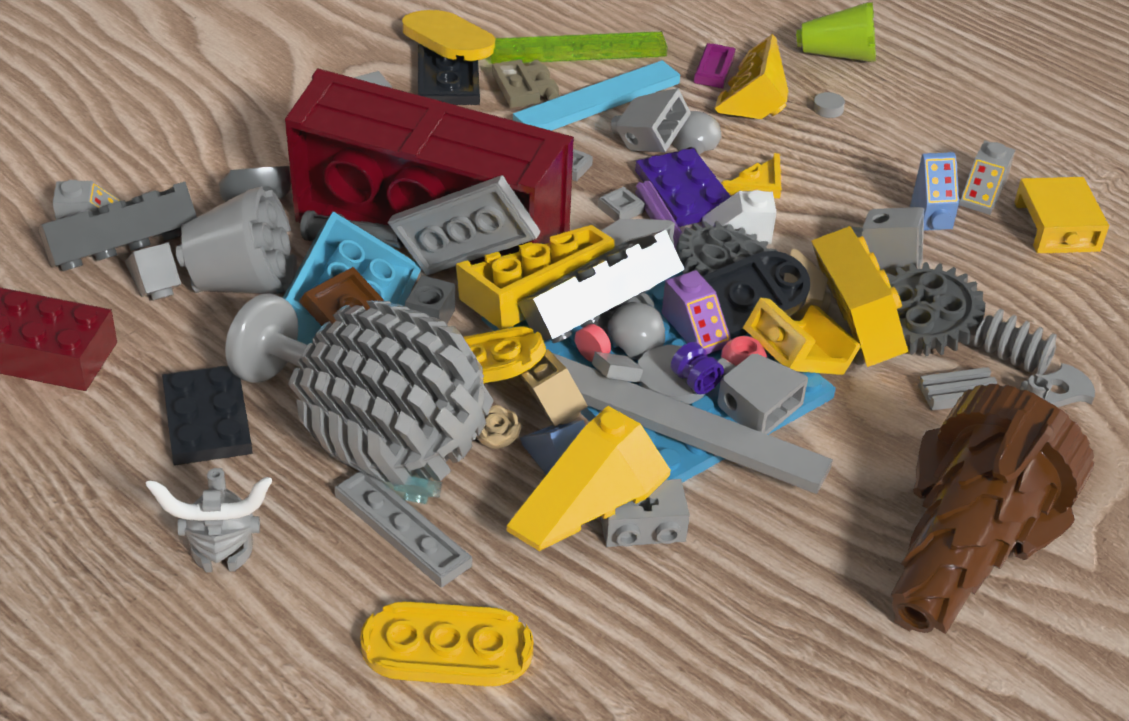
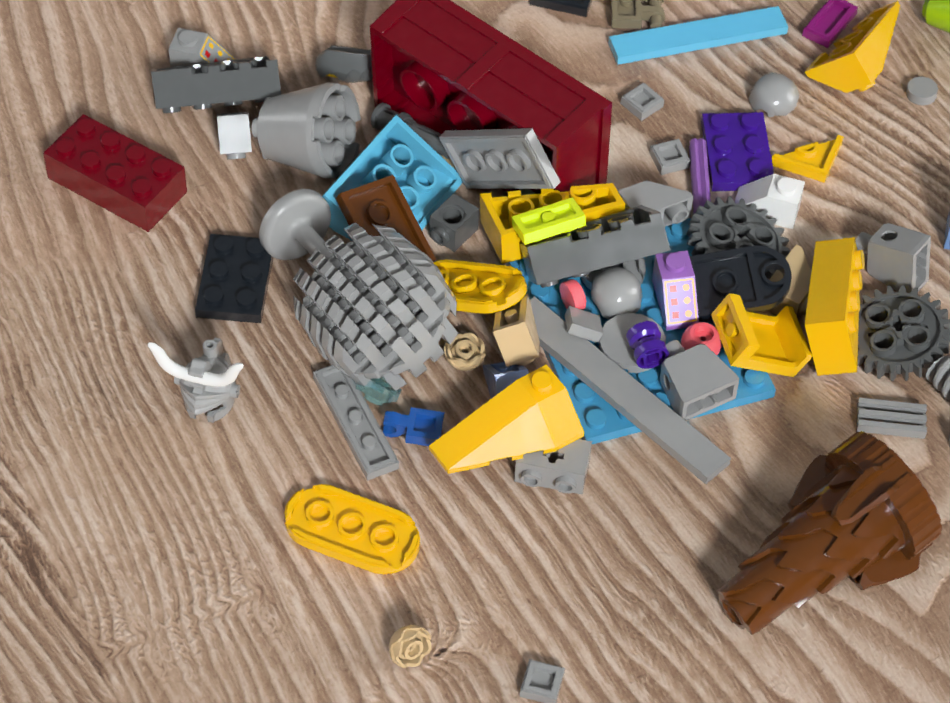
camera: 20 degrees right, 10 degrees up
(479, 513) = (420, 426): none -> blue plate
(546, 268) = (548, 221): none -> neon yellow plate
(652, 121) = (731, 77): light grey torso -> none

